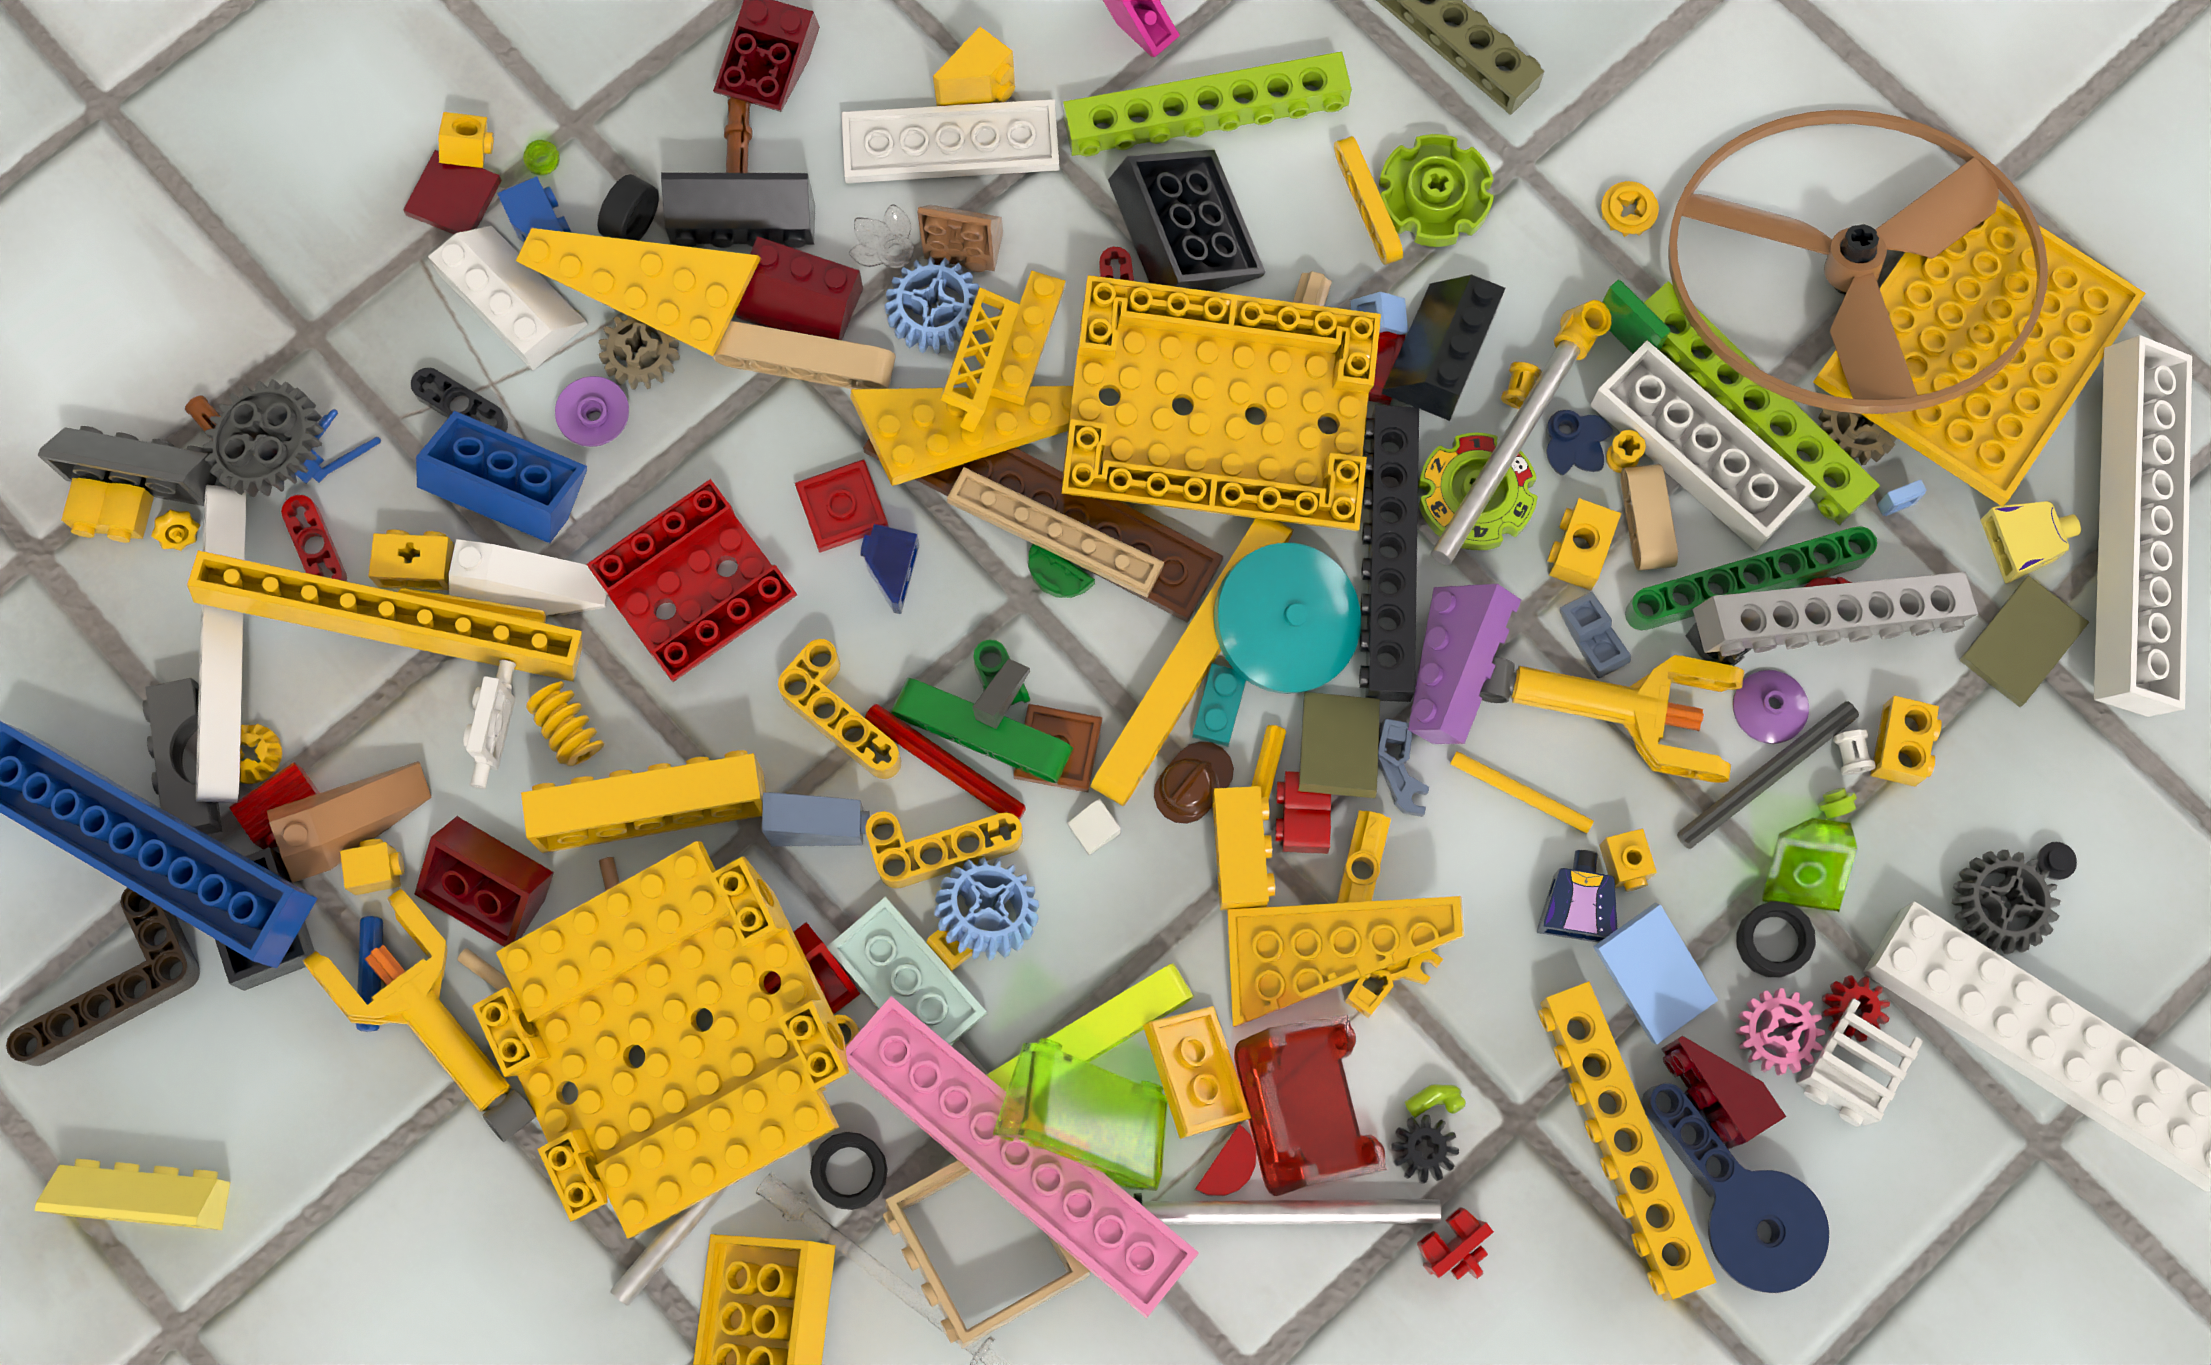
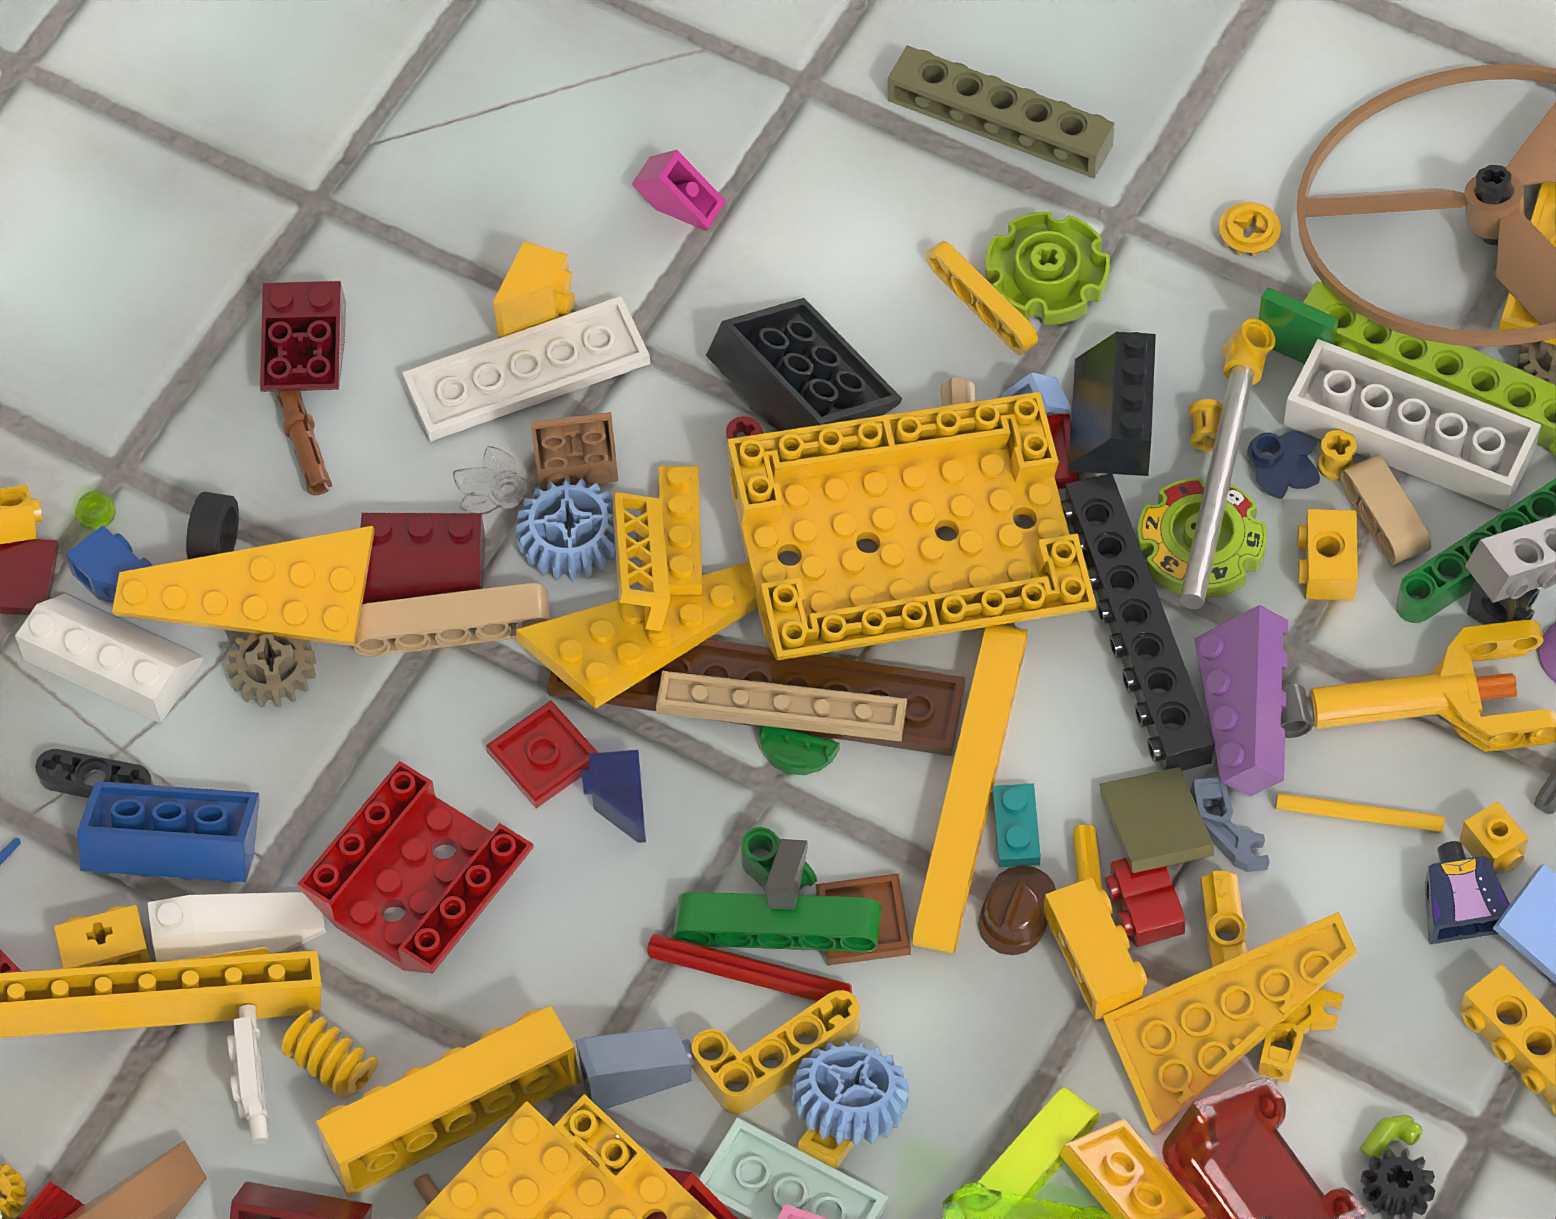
camera: 15 degrees left, 15 degrees down
(590, 396) = (238, 725): medium lavender dish -> none
(738, 208) = (329, 490): black slope -> none
(843, 718) = (673, 978): yellow beam -> none
(1094, 827) = (932, 982): white slope -> none
(1186, 96) = (760, 254): lime brick -> none
(1287, 618) = (1055, 715): teal dish -> none
(1594, 636) = (1373, 640): sand blue slope -> none

